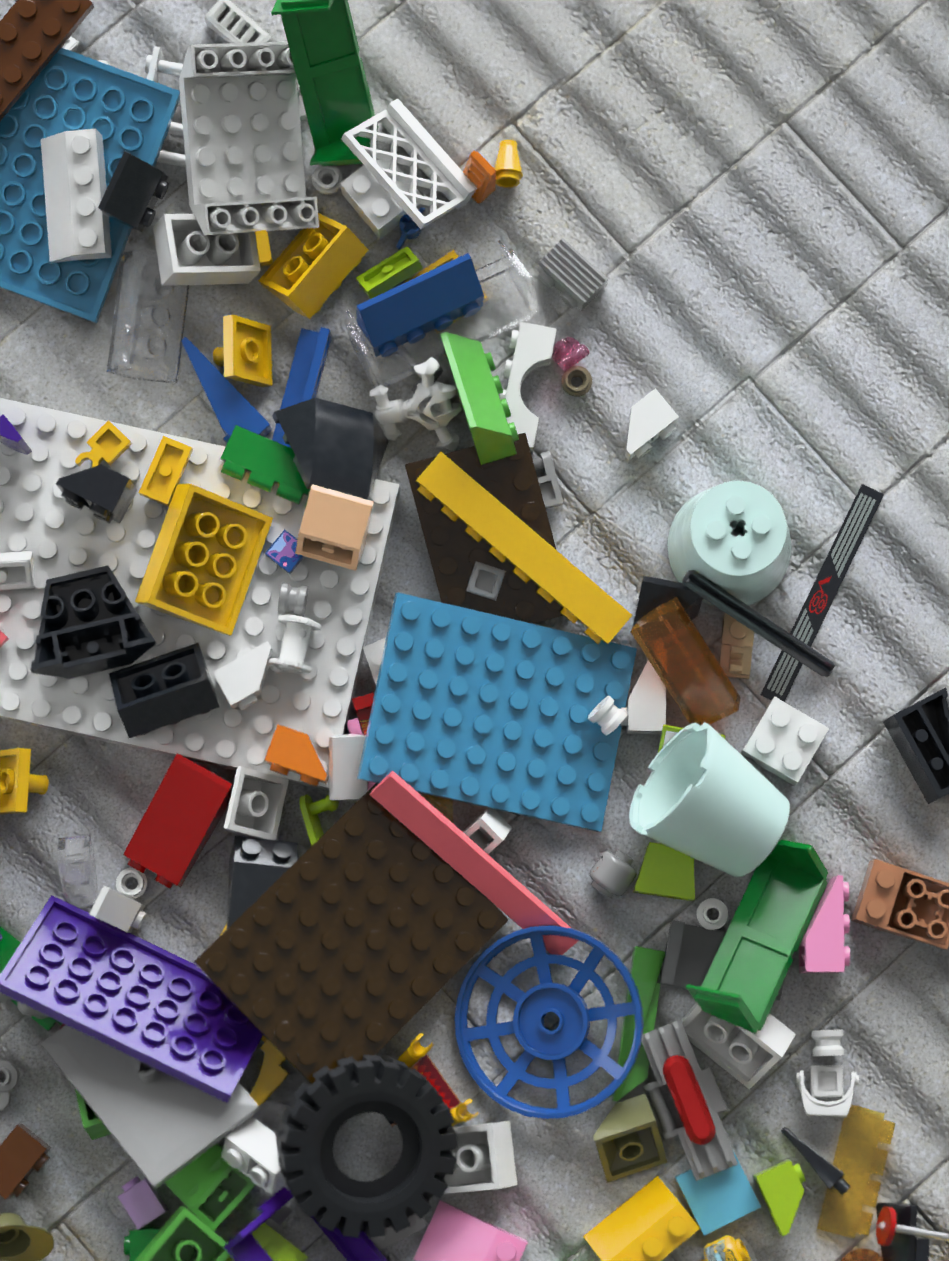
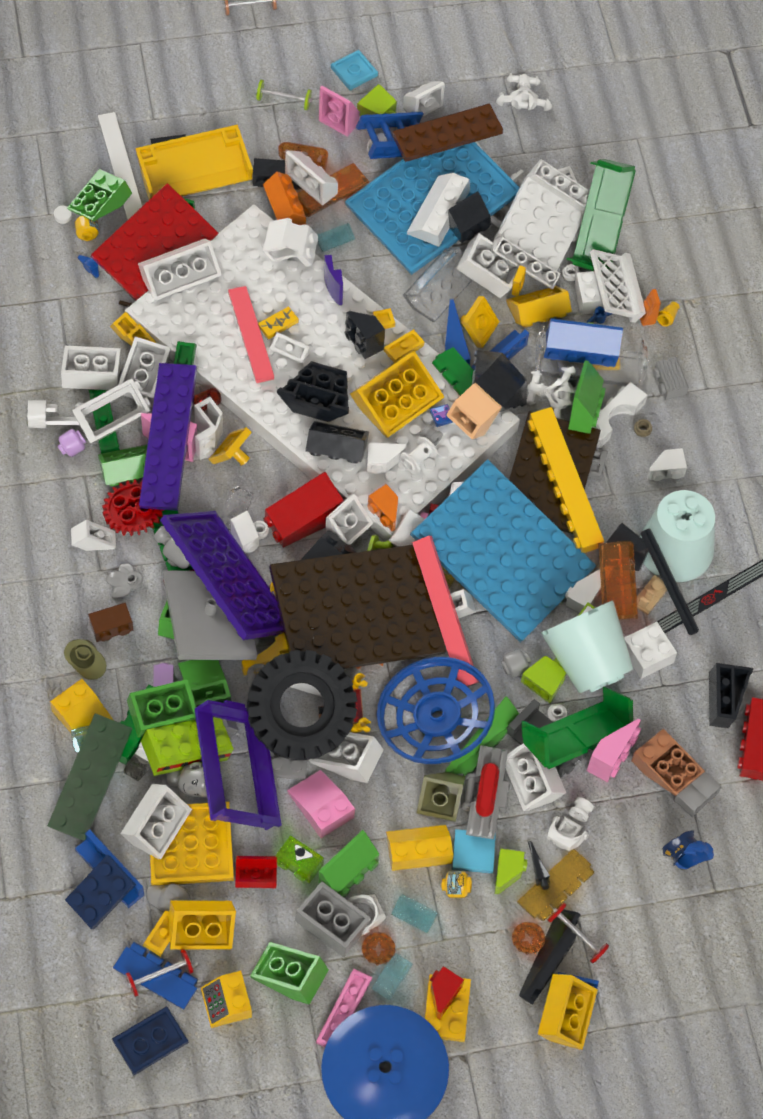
camera: 25 degrees right, 20 degrees down
(254, 1153) = (238, 677): white slope -> none
(485, 581) = (536, 487): light grey tile -> none
(569, 352) = (647, 411): clear pink plate -> none
(607, 715) = (561, 581): white wheel -> none

